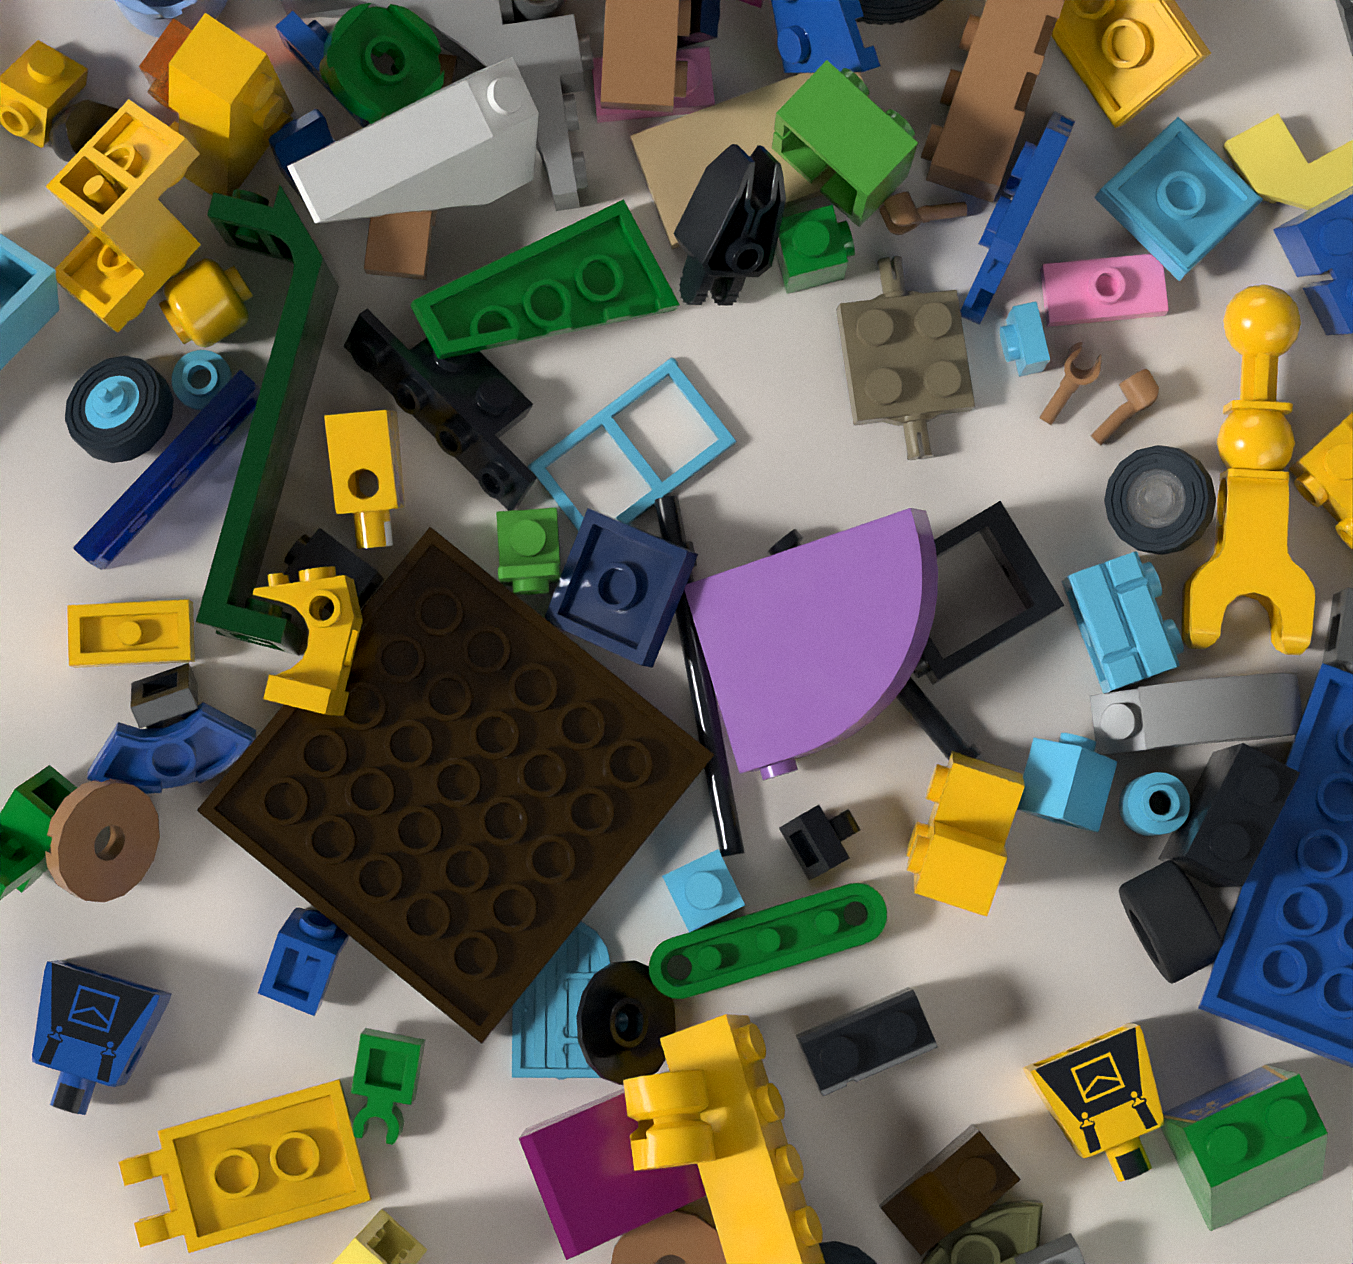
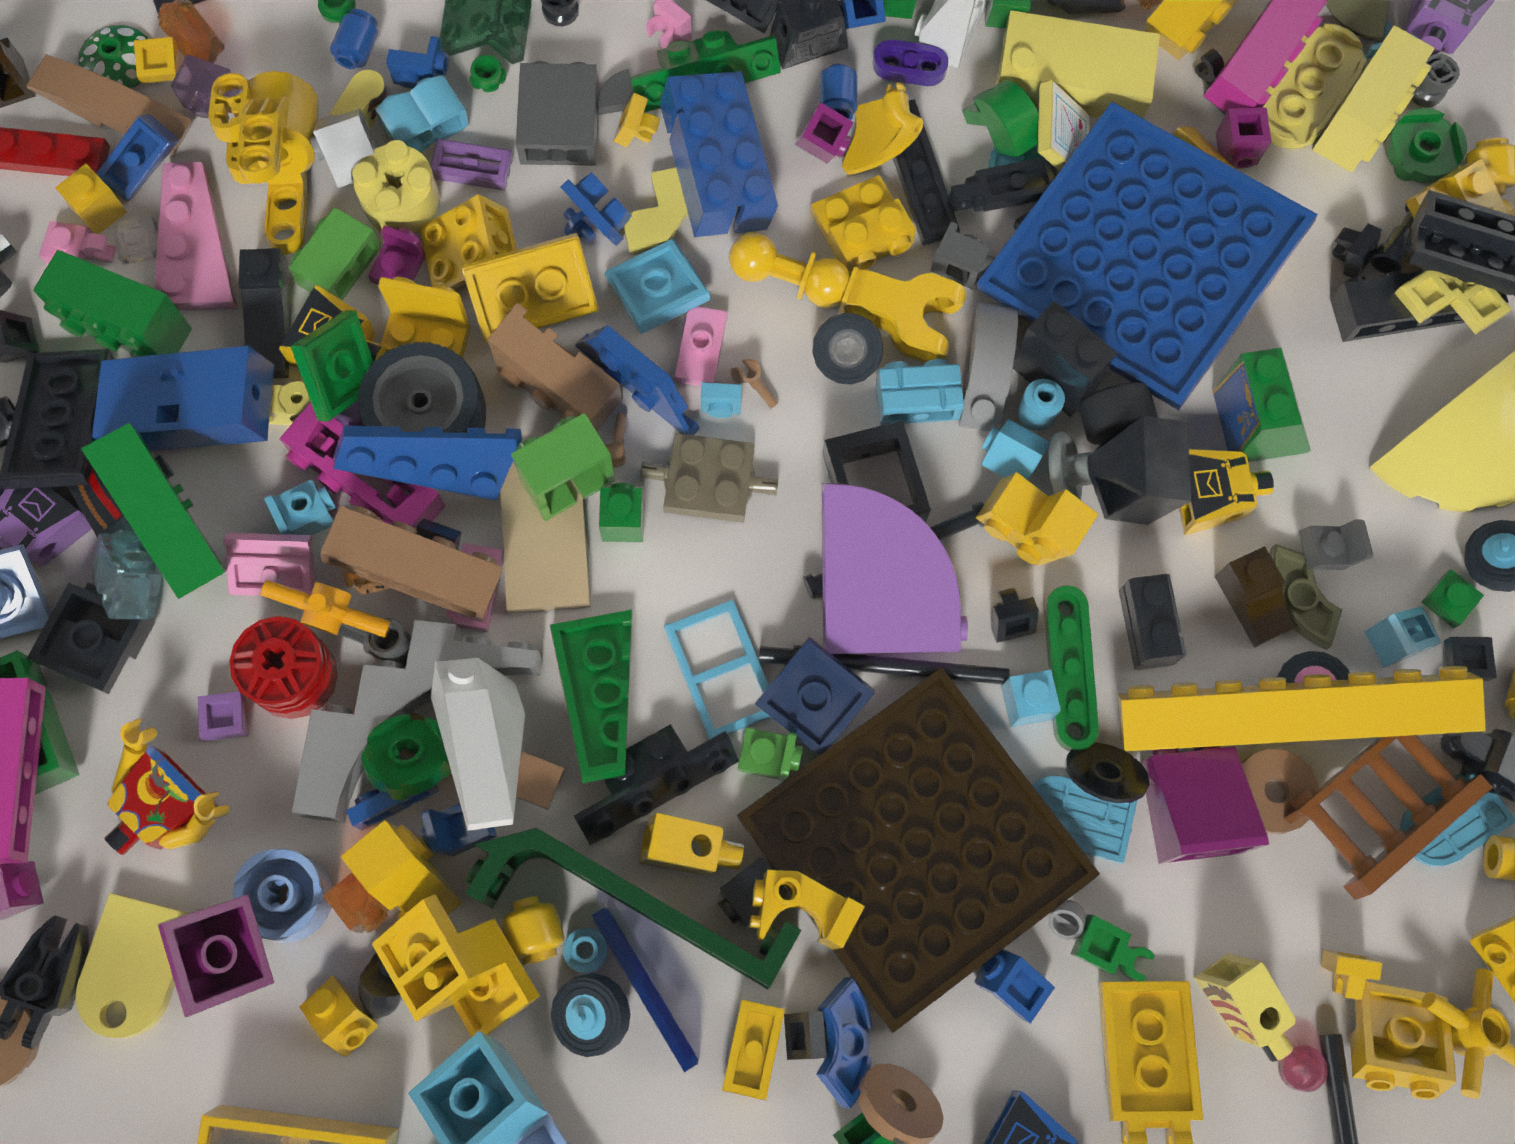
camera: 80 degrees left, 10 degrees down
(410, 1014) = (1068, 920): none -> light grey hinge
(669, 1120) = (1187, 752): yellow wheel -> none
(731, 225) = (593, 554): black hinge -> none
(1079, 958) = (1134, 473): none -> black piece
(1140, 392) = (774, 342): medium nougat hand -> none
(1258, 64) = (585, 196): none -> blue hips

